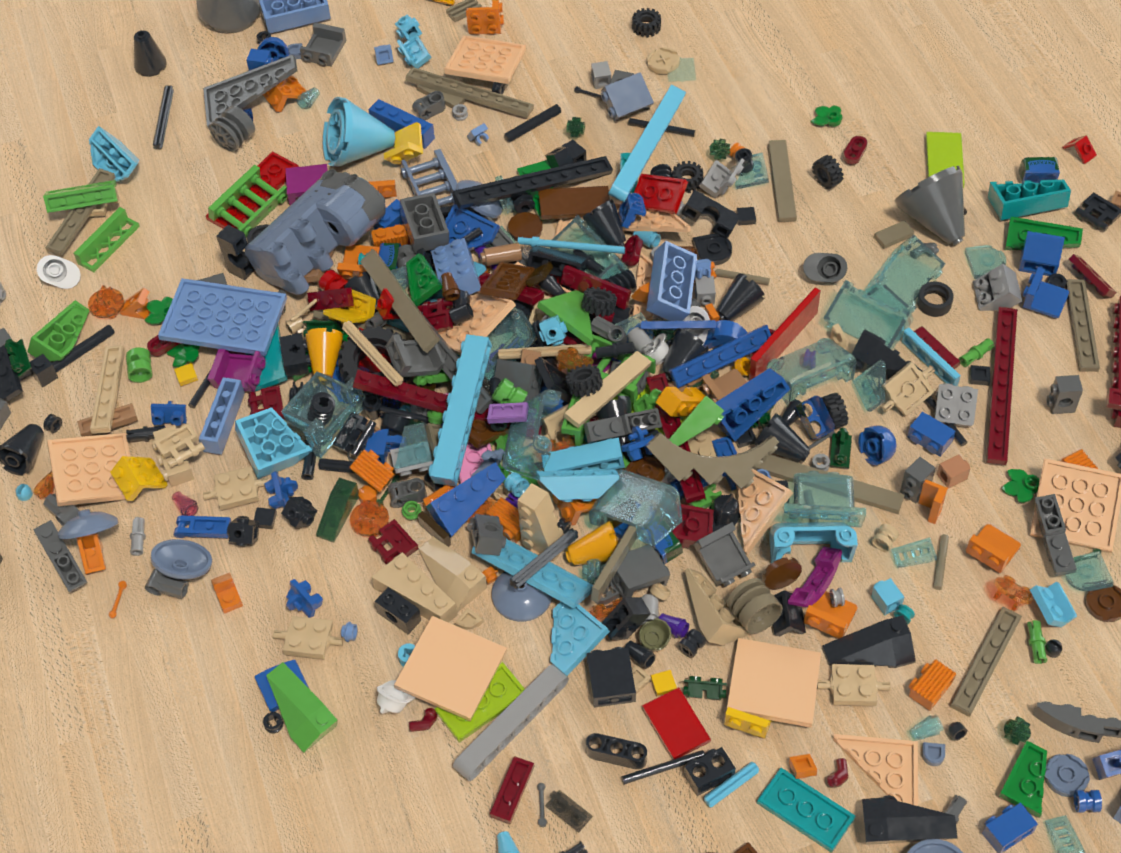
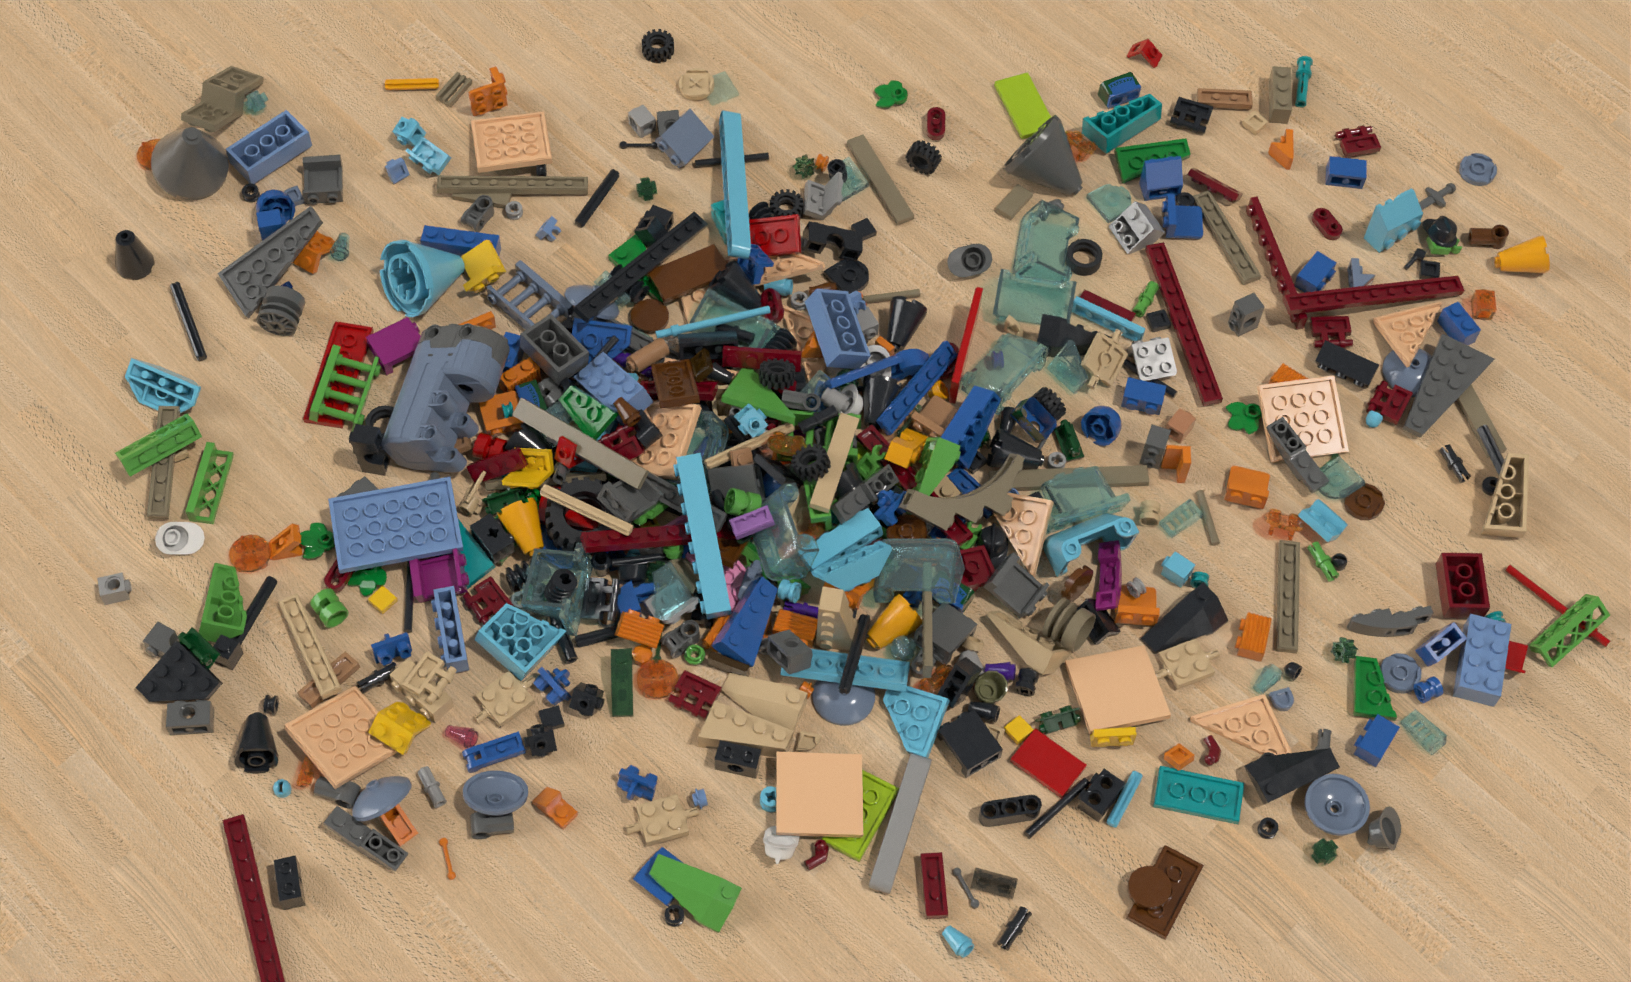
camera: 30 degrees left, 5 degrees up
(978, 201) = (1084, 147): none -> clear orange plate

